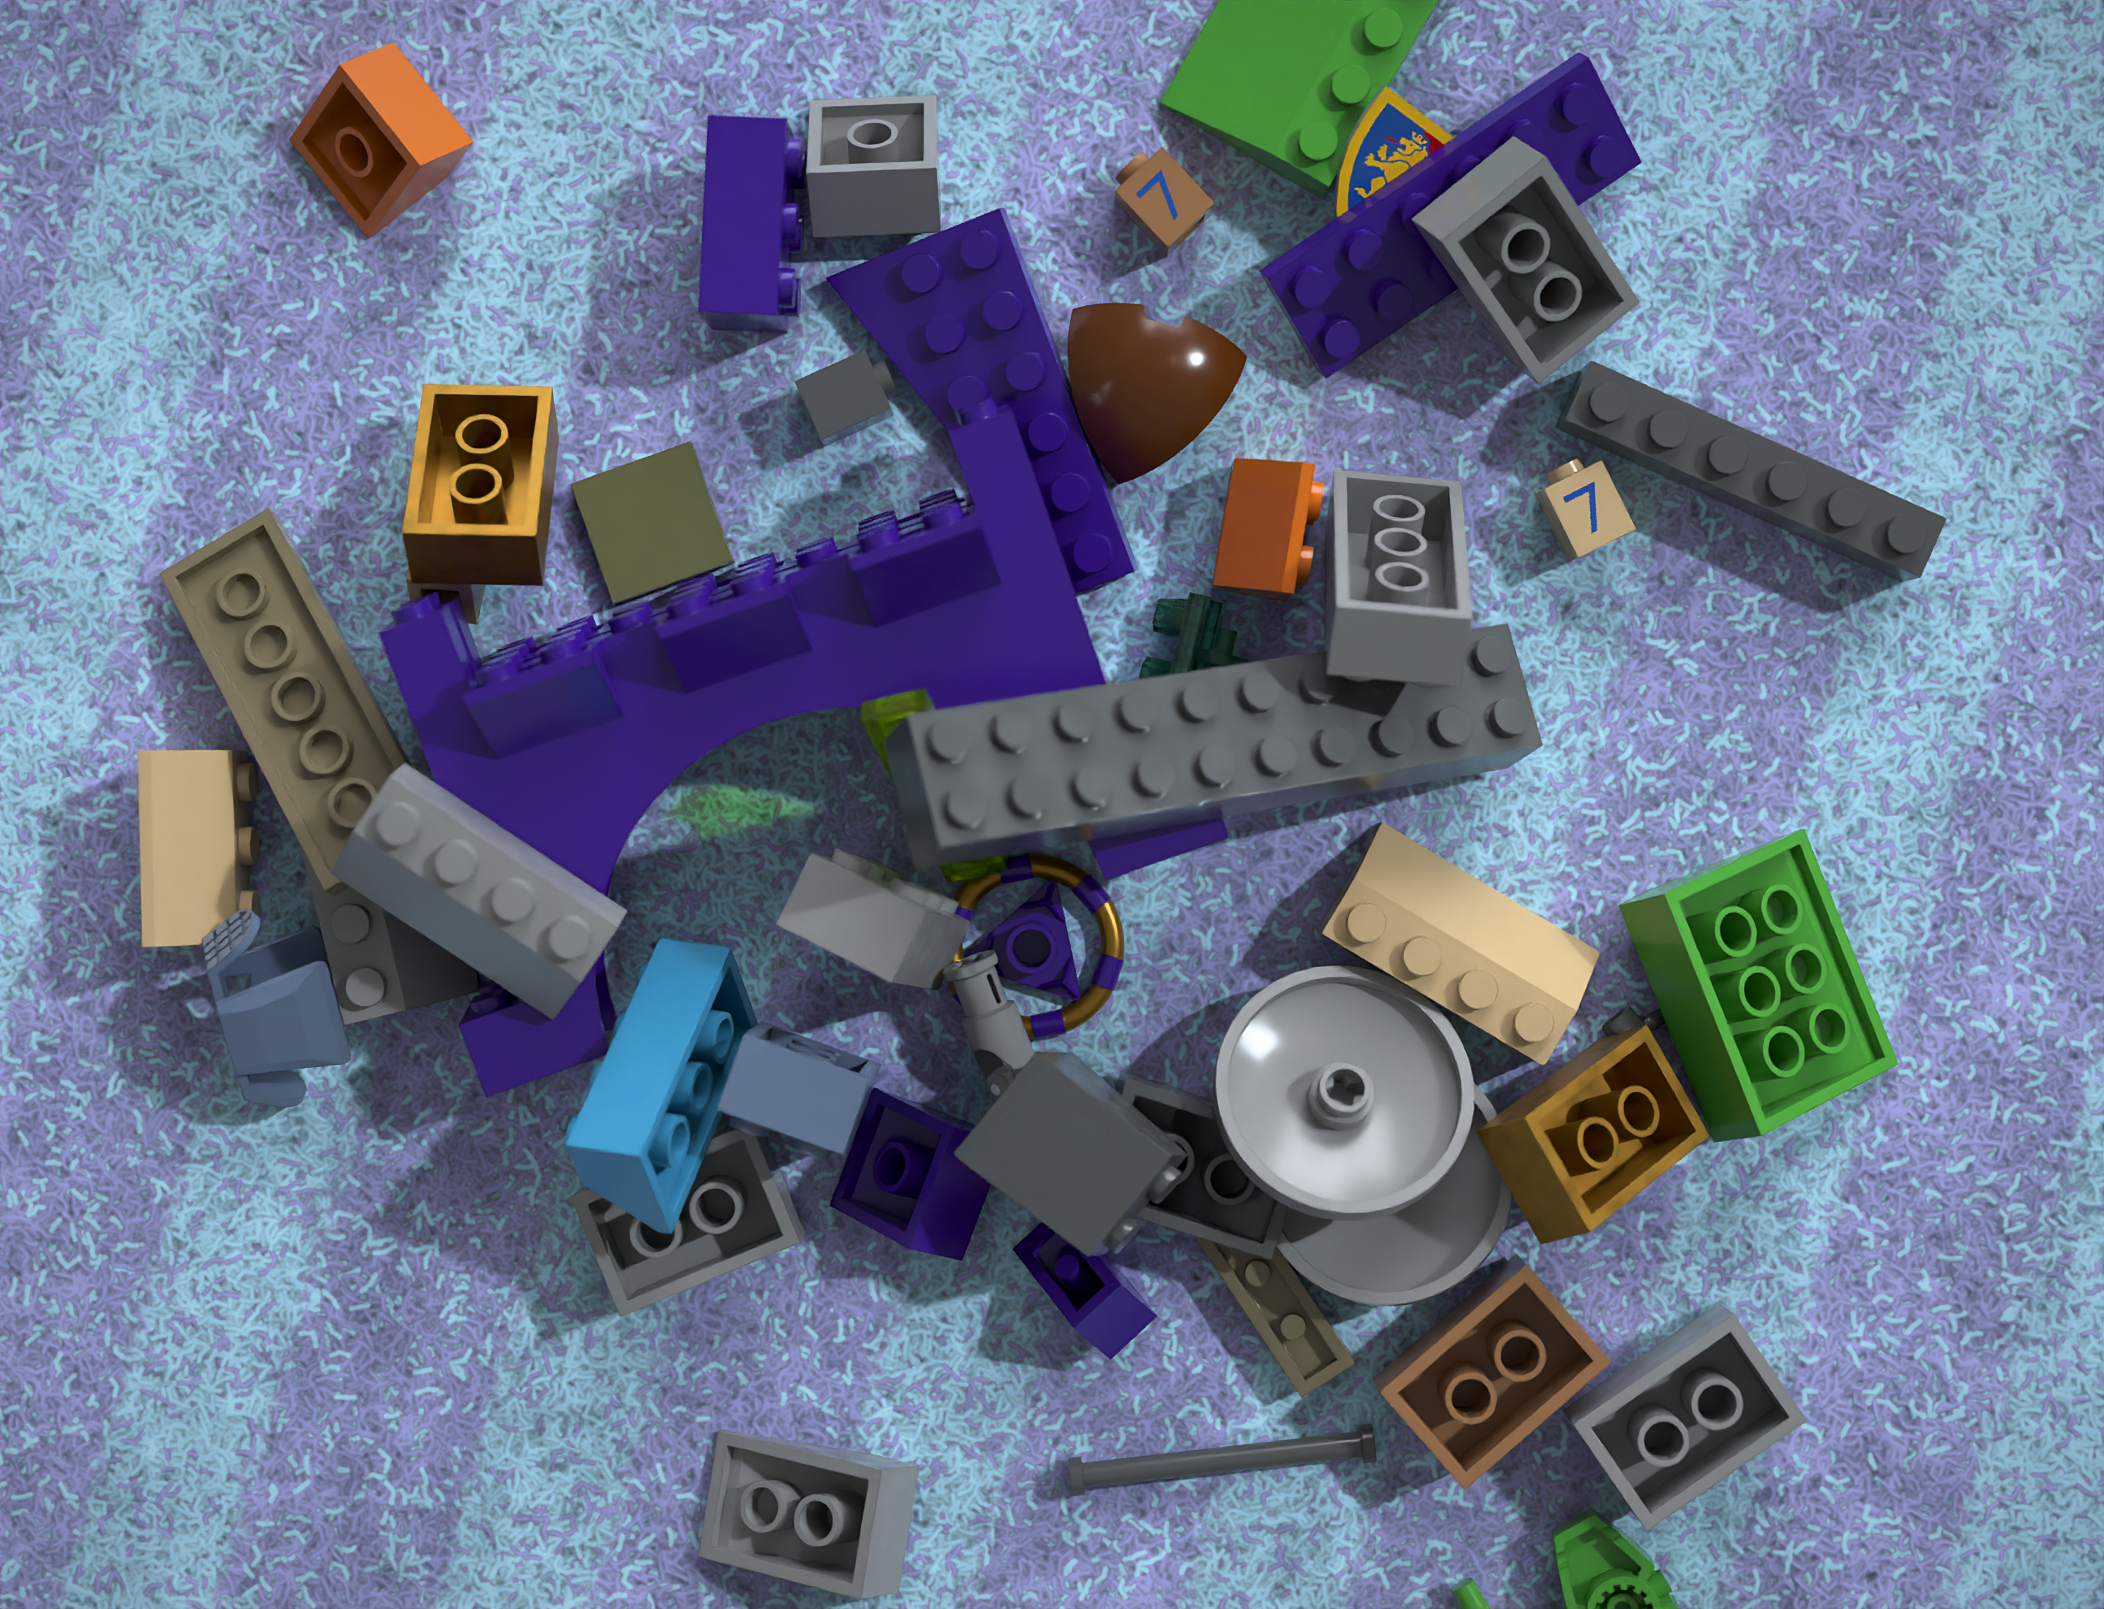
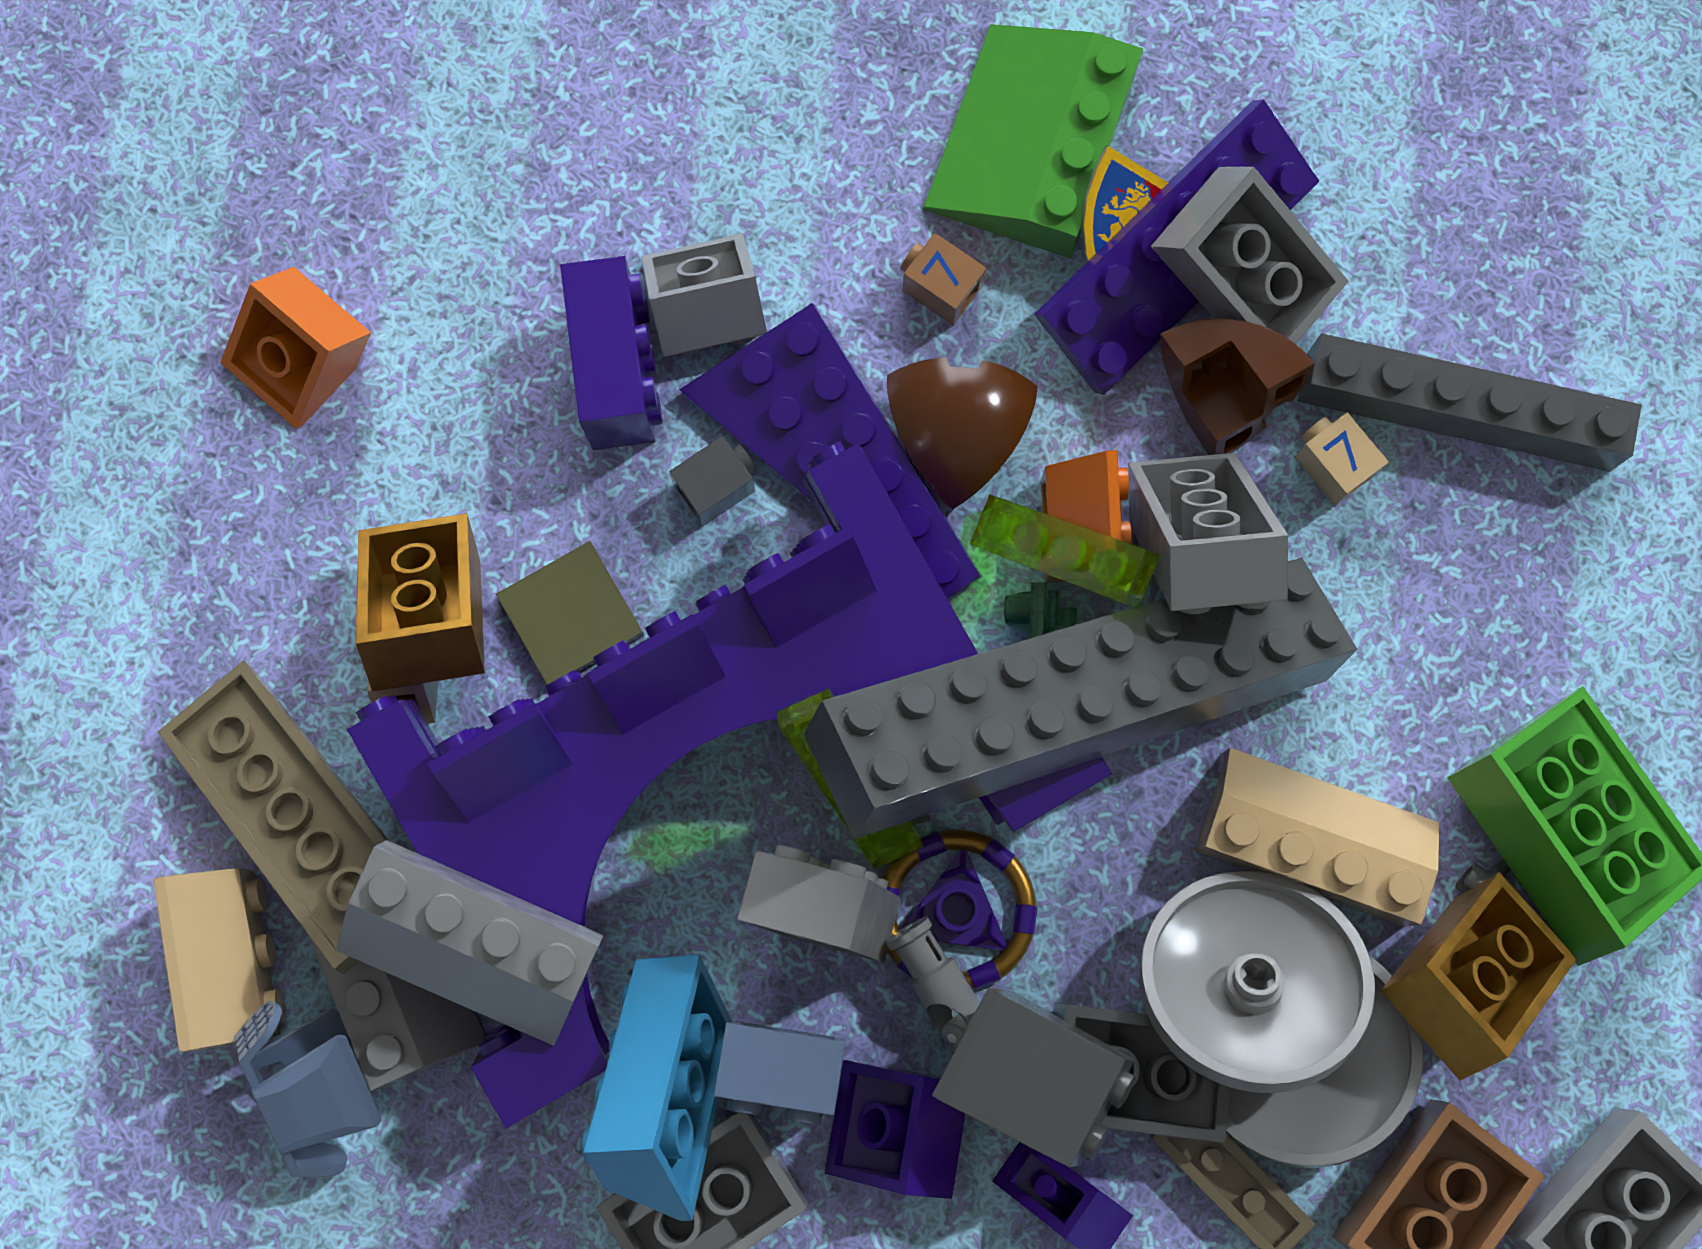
camera: 15 degrees left, 10 degrees down
(1230, 567) = (1065, 551): none -> clear neon green plate
(1474, 393) = (1231, 378): none -> reddish brown brick

